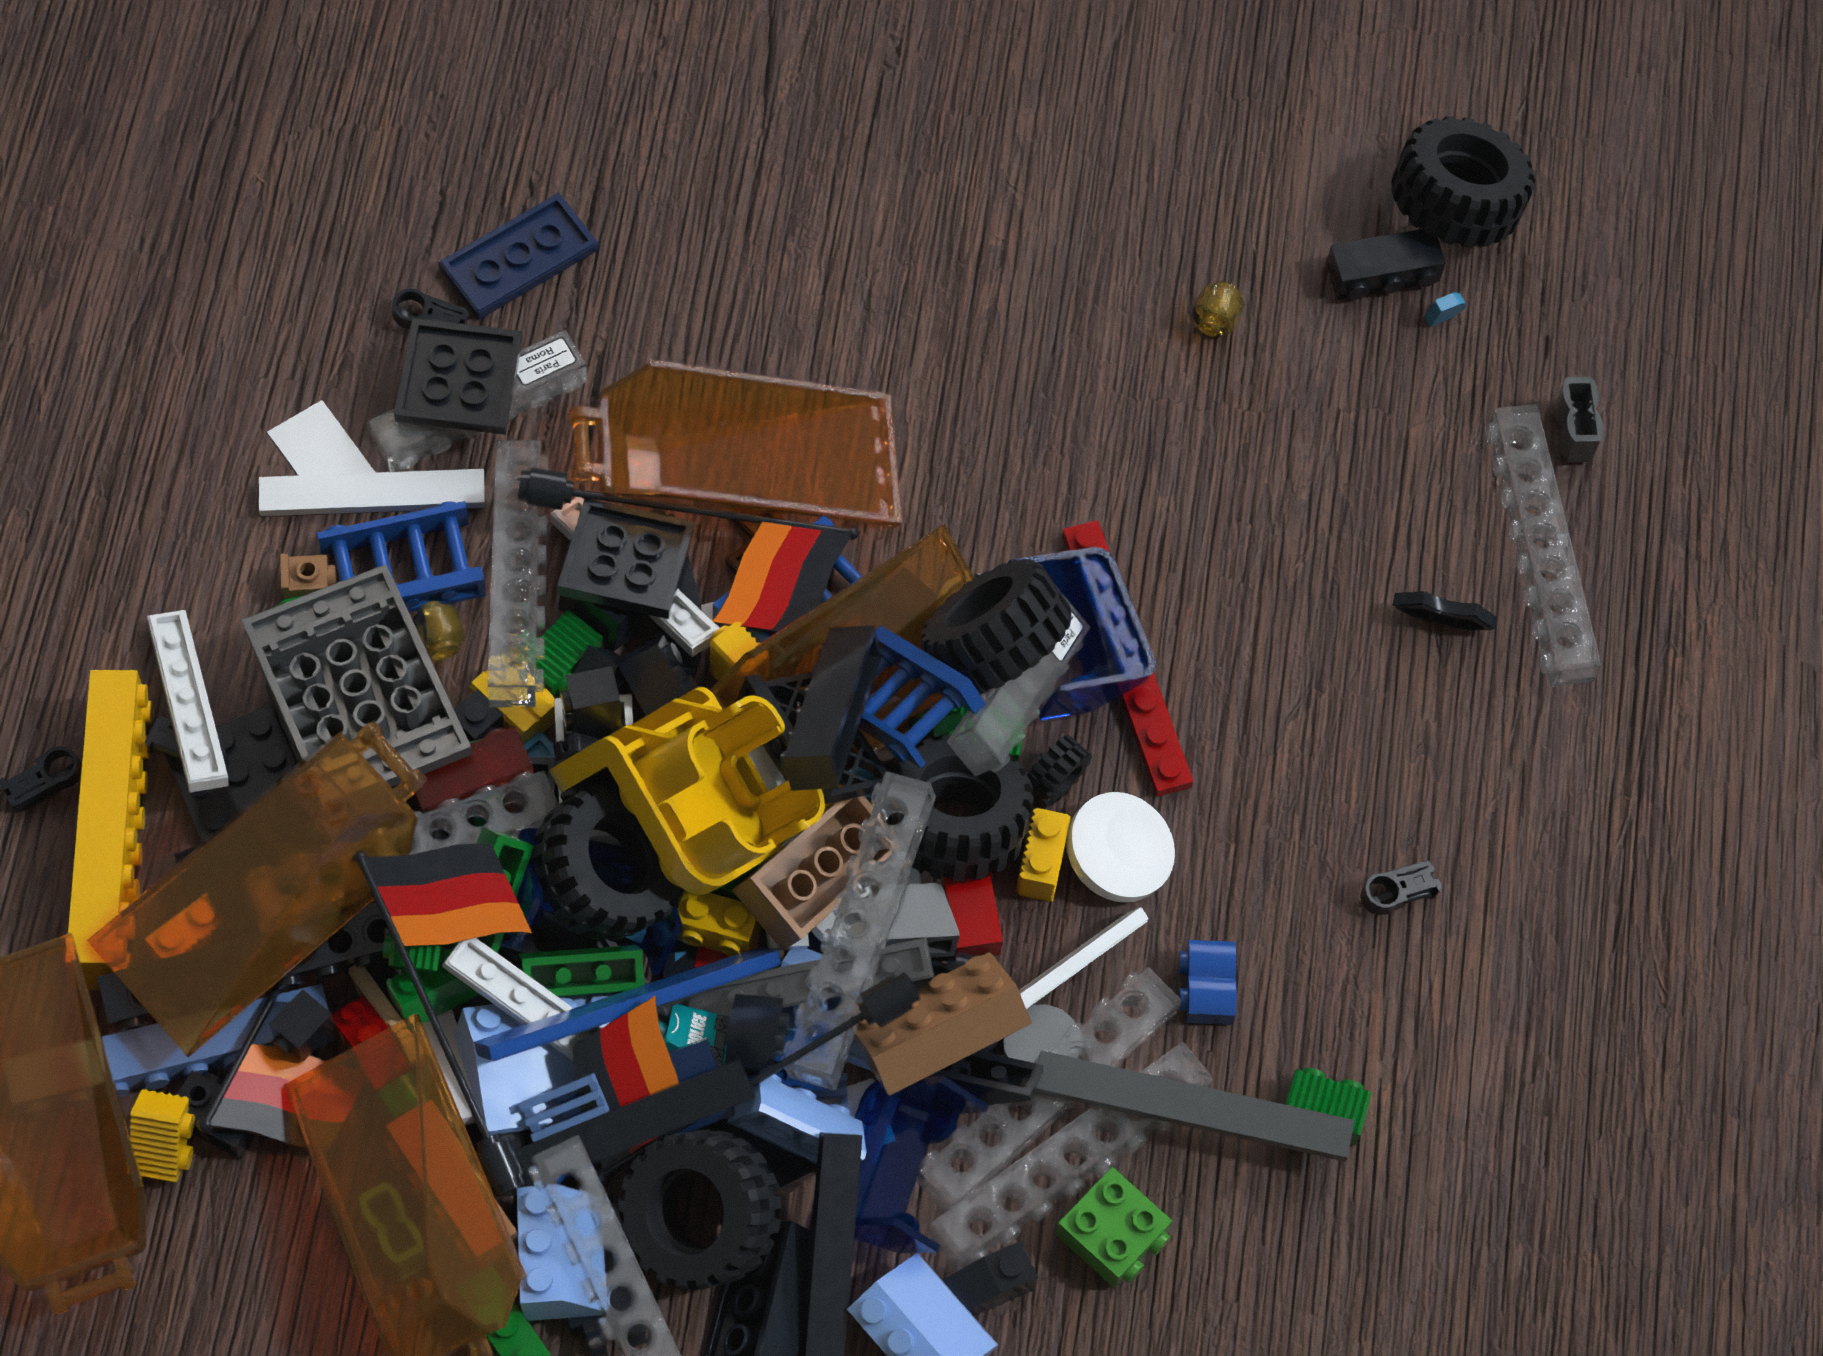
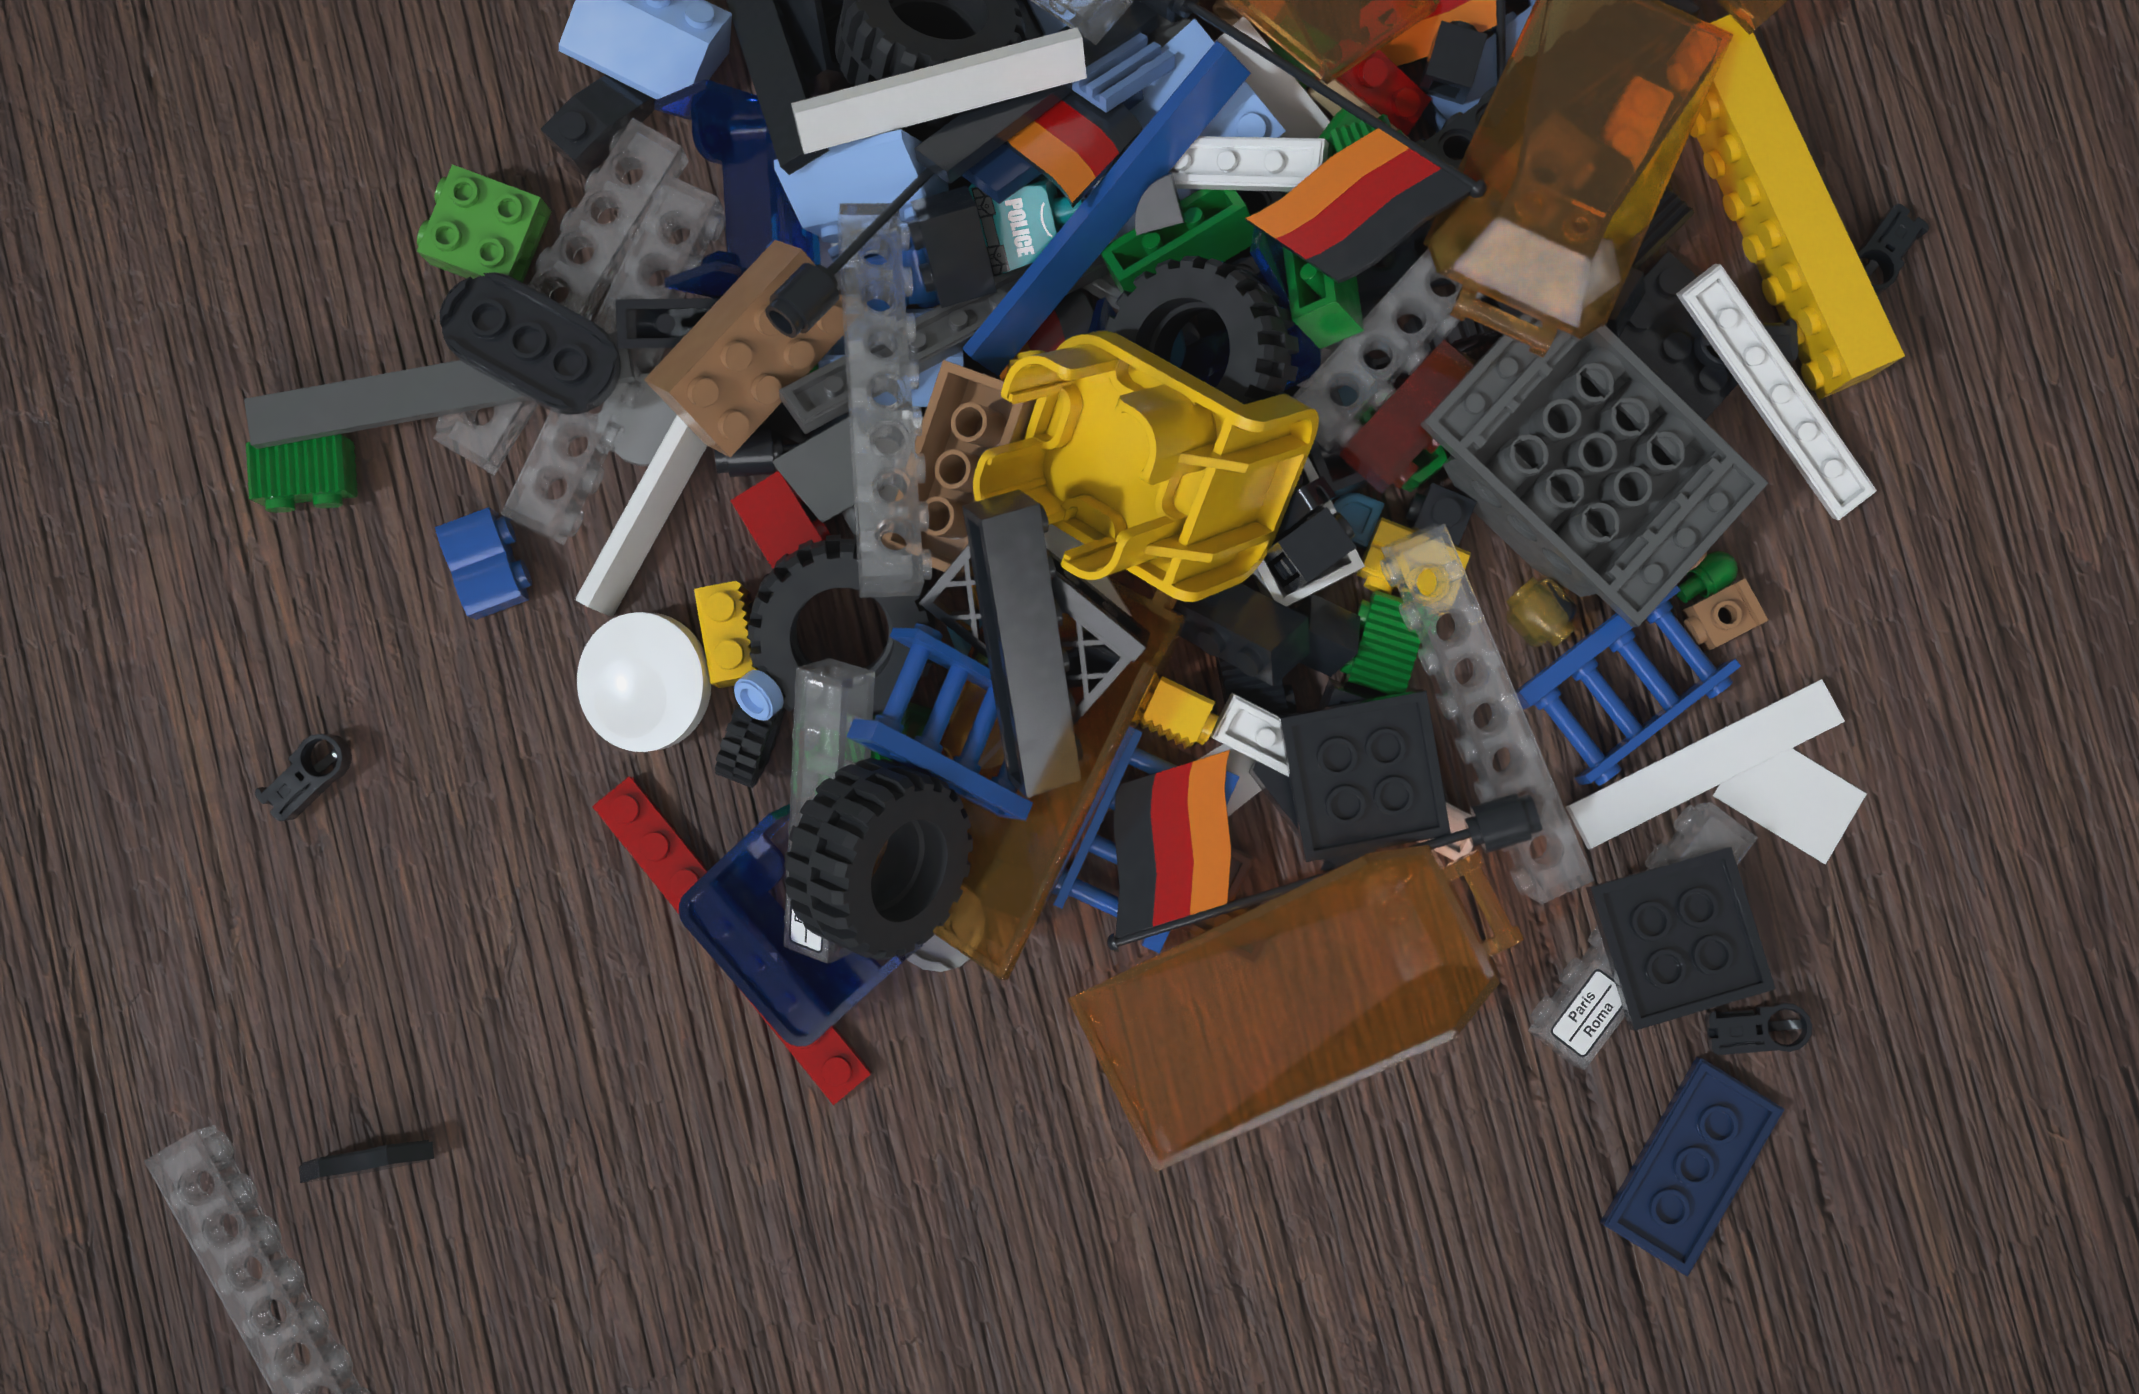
camera: 160 degrees right, 20 degrees up
(586, 987) = (1159, 206): none -> tile
(715, 1126) = (940, 90): none -> white tile
(1038, 777) = (758, 695): none -> light blue tile
(1109, 1104) = (530, 343): none -> black tile

